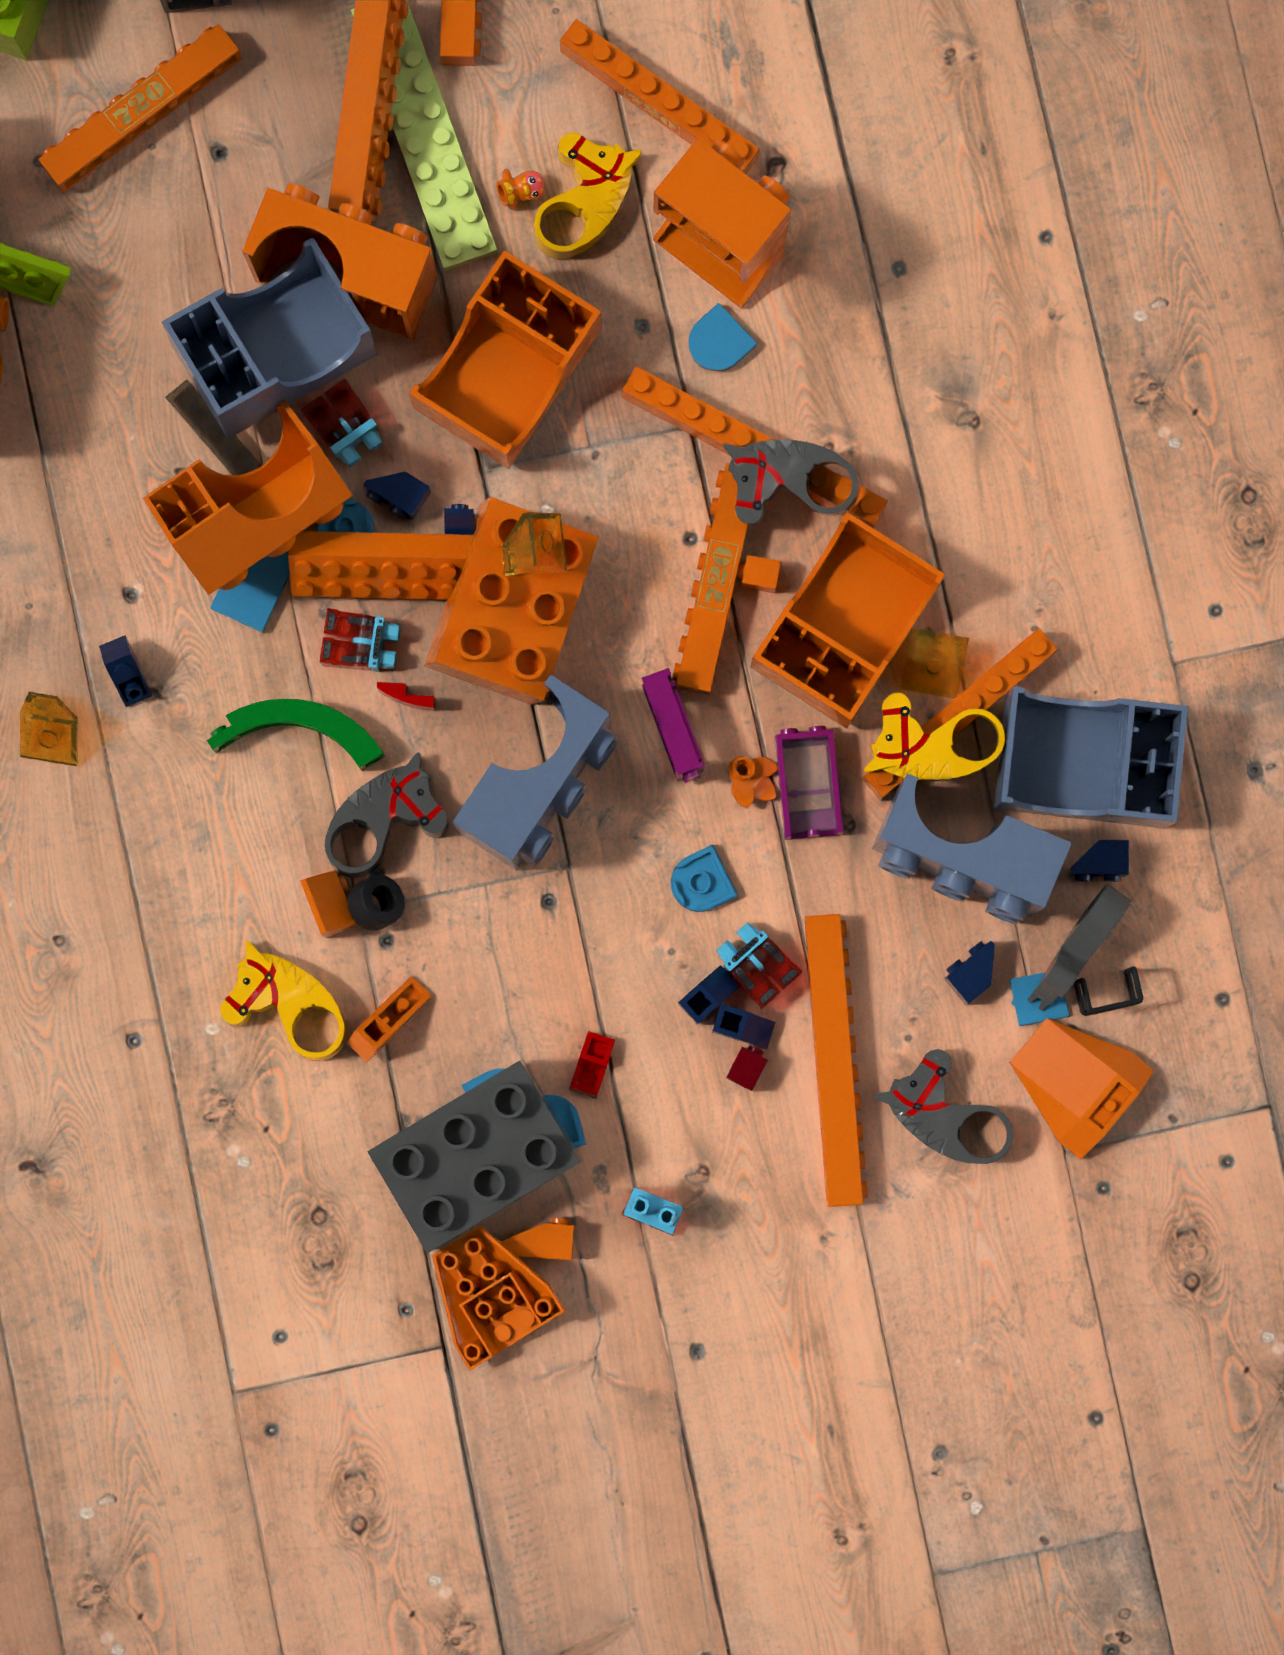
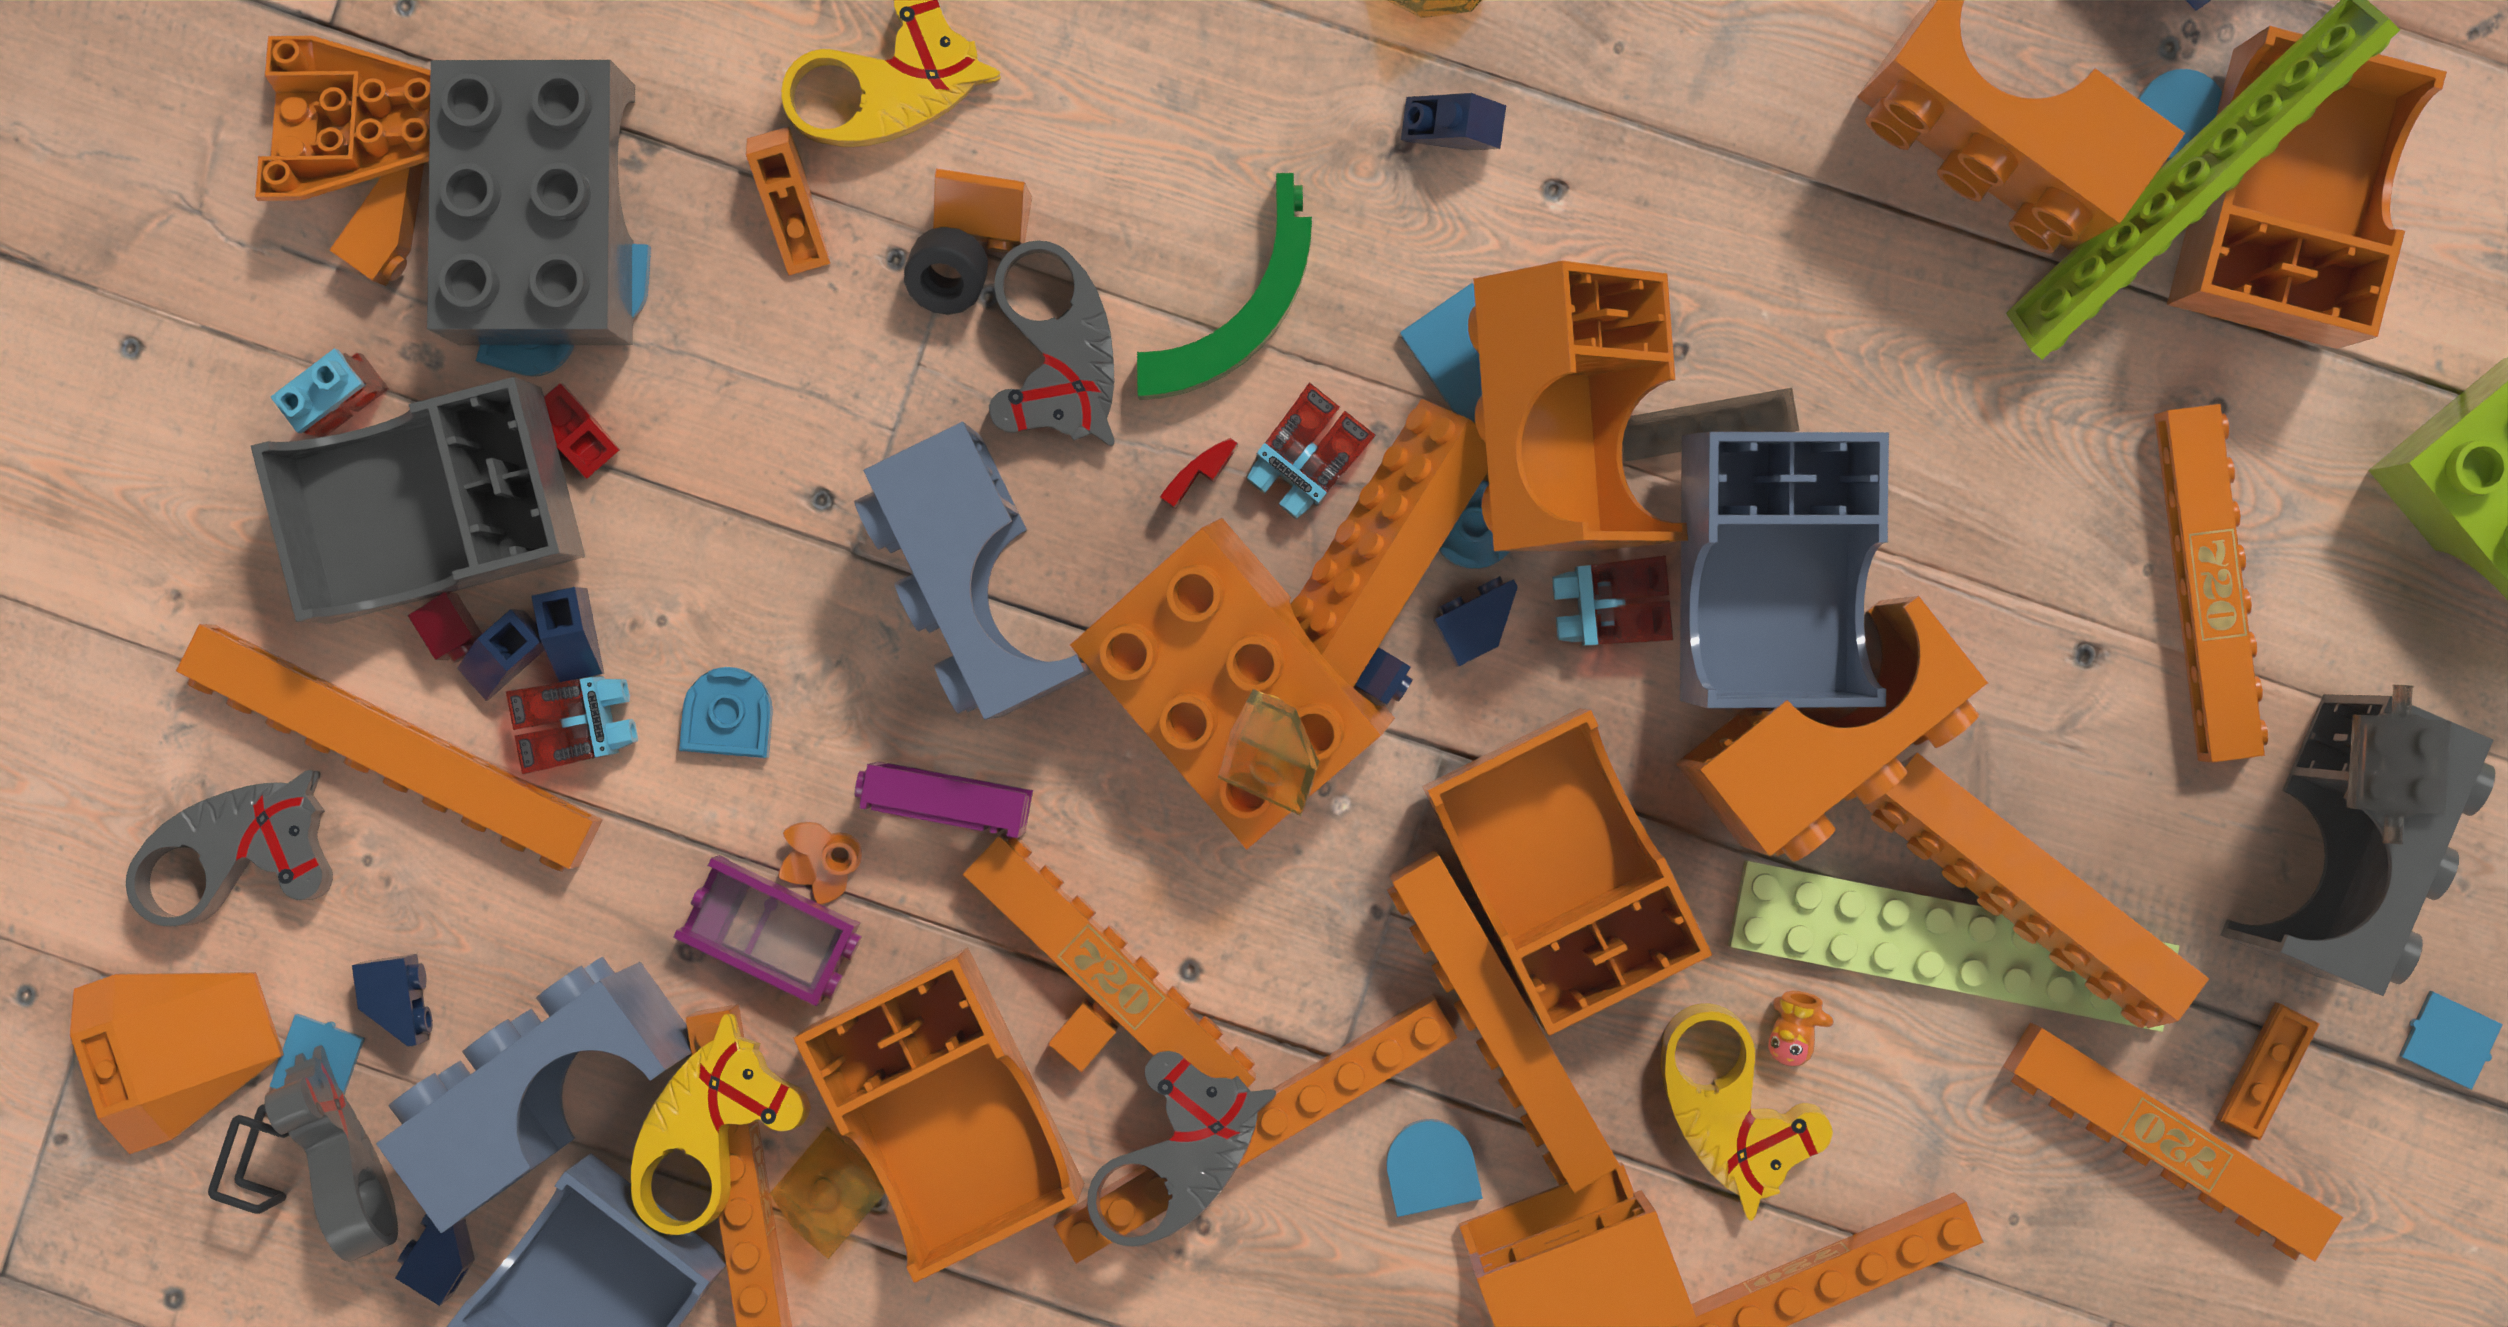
camera: 120 degrees right, 5 degrees up
(611, 347) = (1507, 1027): none -> orange brick
(681, 1115) = (419, 503): none -> dark grey piece

